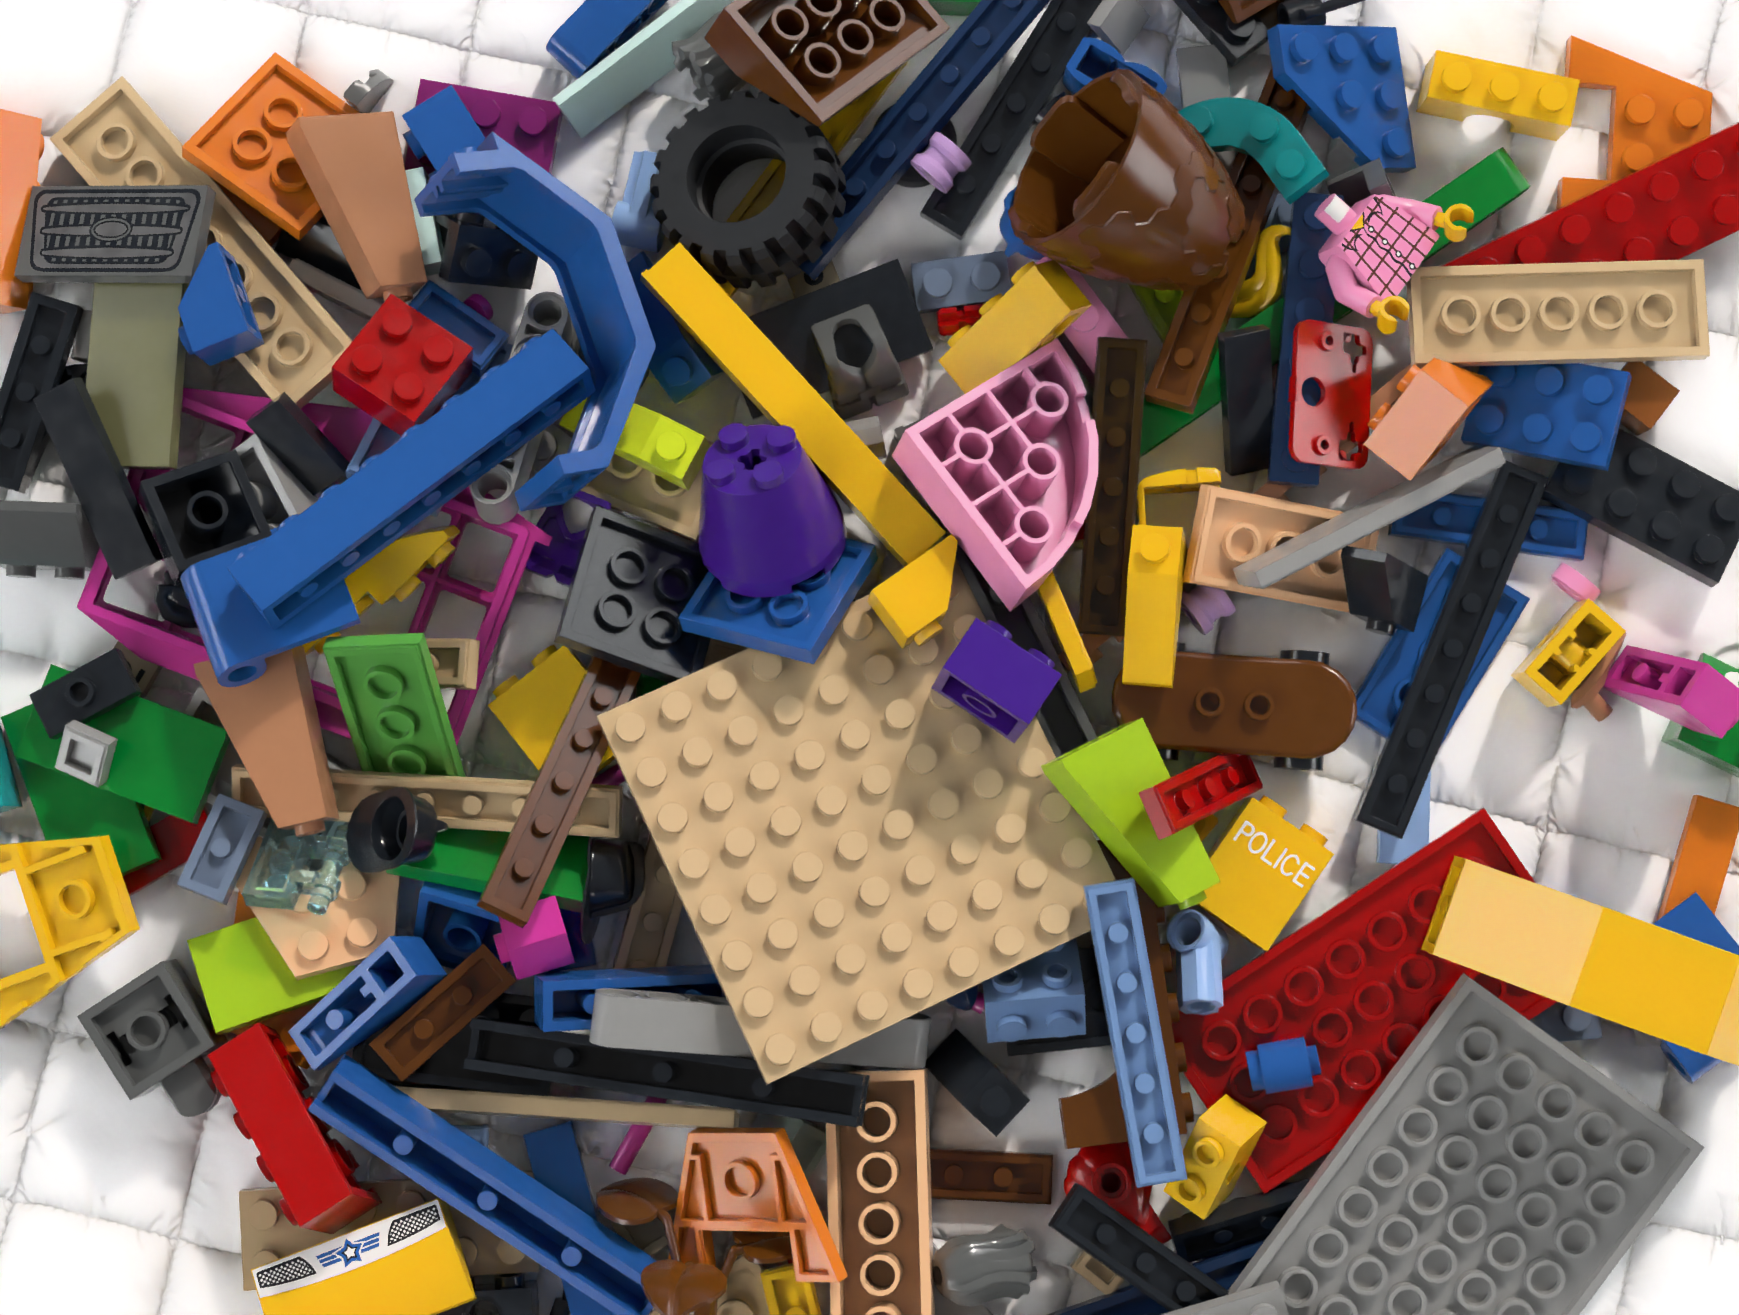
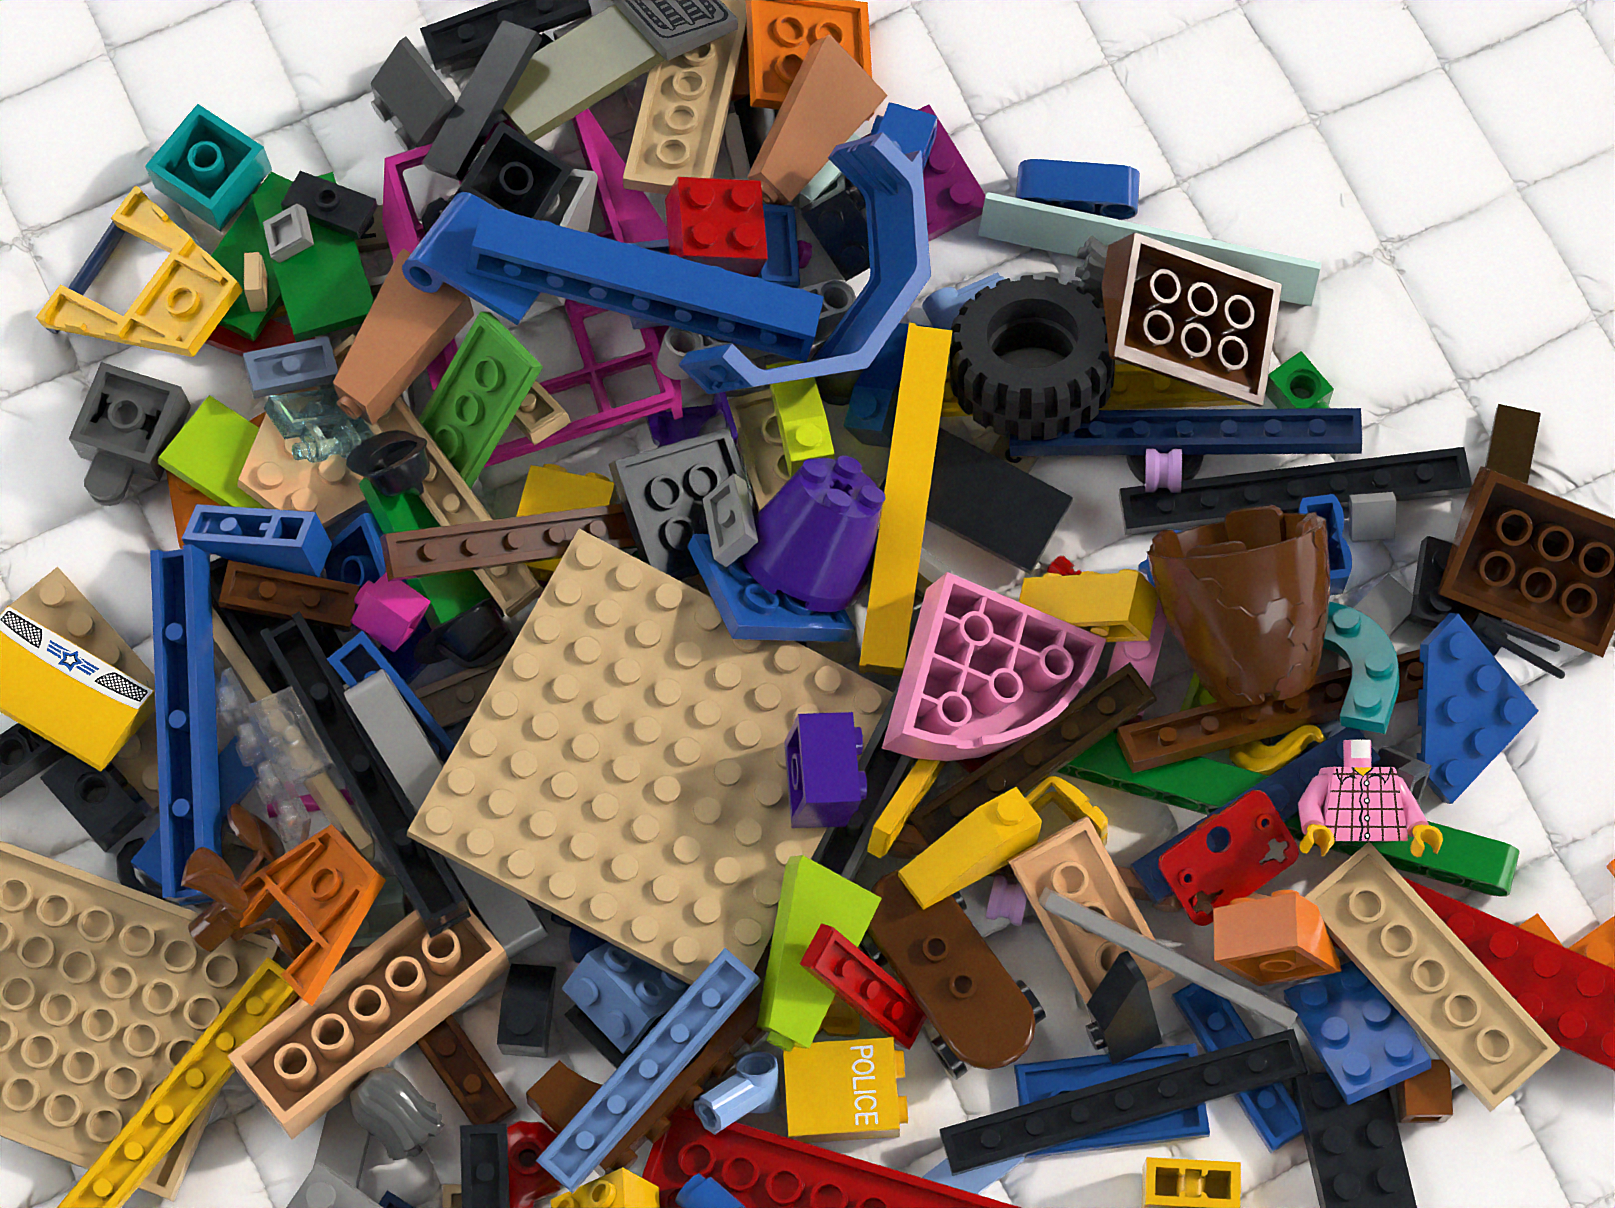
camera: 50 degrees right, 15 degrees down
(110, 818) = (255, 282): none -> tan tile
(217, 310) = (658, 85): blue slope -> none
(292, 1142) = (117, 569): red wedge -> none
(298, 443) = (611, 199): black tile -> none
(366, 95) = (891, 79): dark grey tile -> none
(395, 571) = (568, 331): yellow slope -> none
(585, 1126) = (279, 746): none -> clear bracket
(694, 576) = (730, 520): none -> light grey plate
(856, 388) = (969, 548): dark grey piece -> none
(917, 595) = (843, 678): yellow slope -> none
(959, 281) = (1090, 548): sand blue plate -> none
(1246, 398) = (1180, 803): black tile -> none
(1529, 99) = (1567, 837): yellow arch -> none
(1574, 583) = (1248, 1157): bright pink tile -> none

